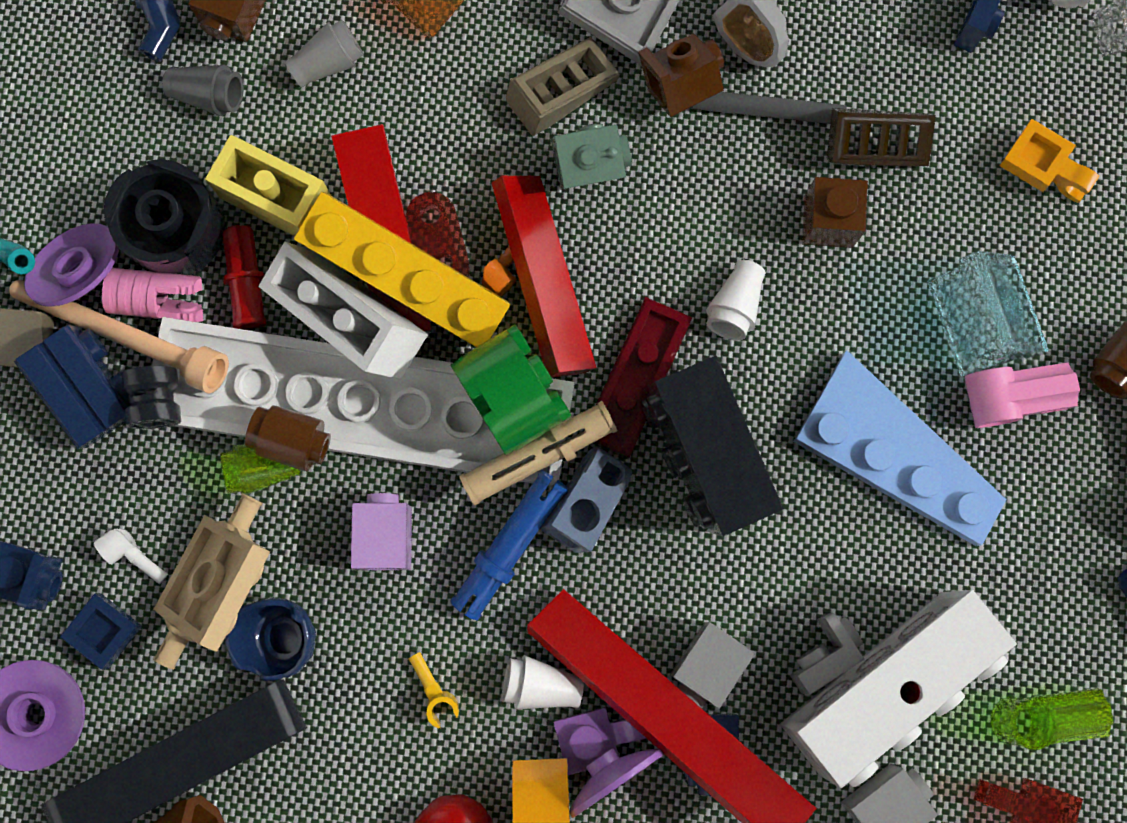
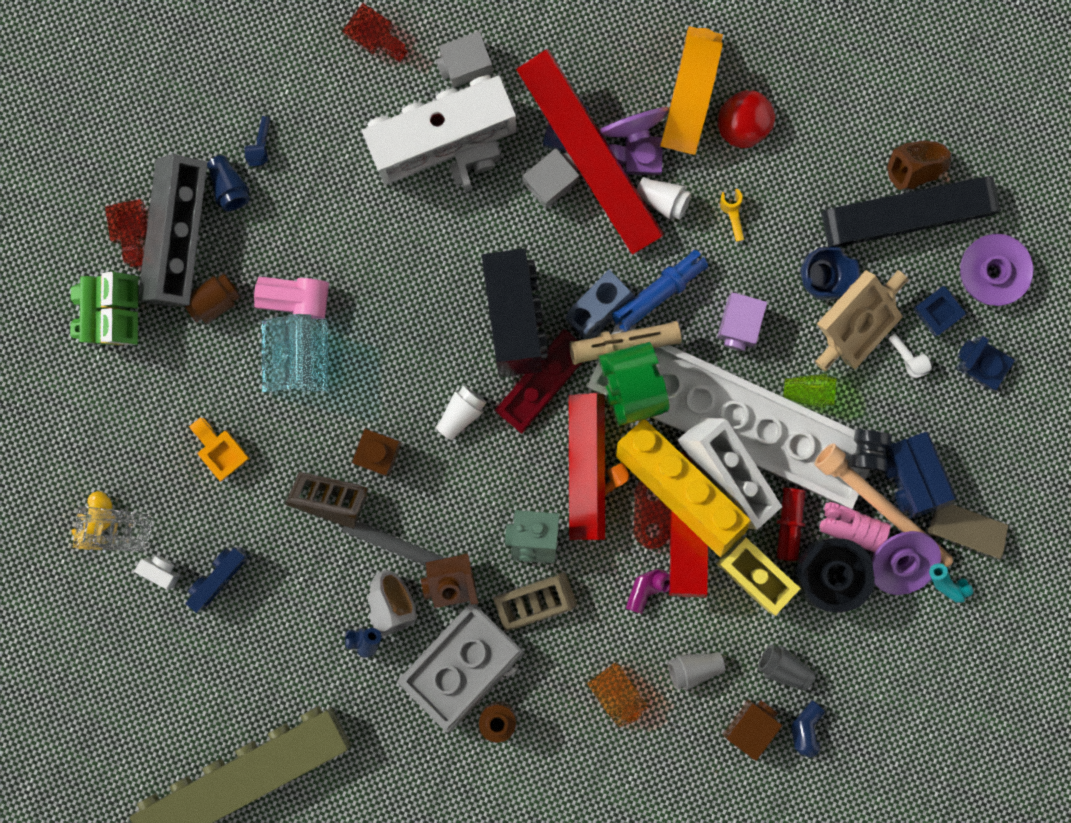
camera: 165 degrees left, 5 degrees up
(287, 437) = (787, 398): reddish brown brick -> none
(421, 144) = (645, 586): none -> magenta arm
(890, 448) = (391, 289): light blue wing -> none
(1053, 718) = (340, 84): clear neon green piece -> none

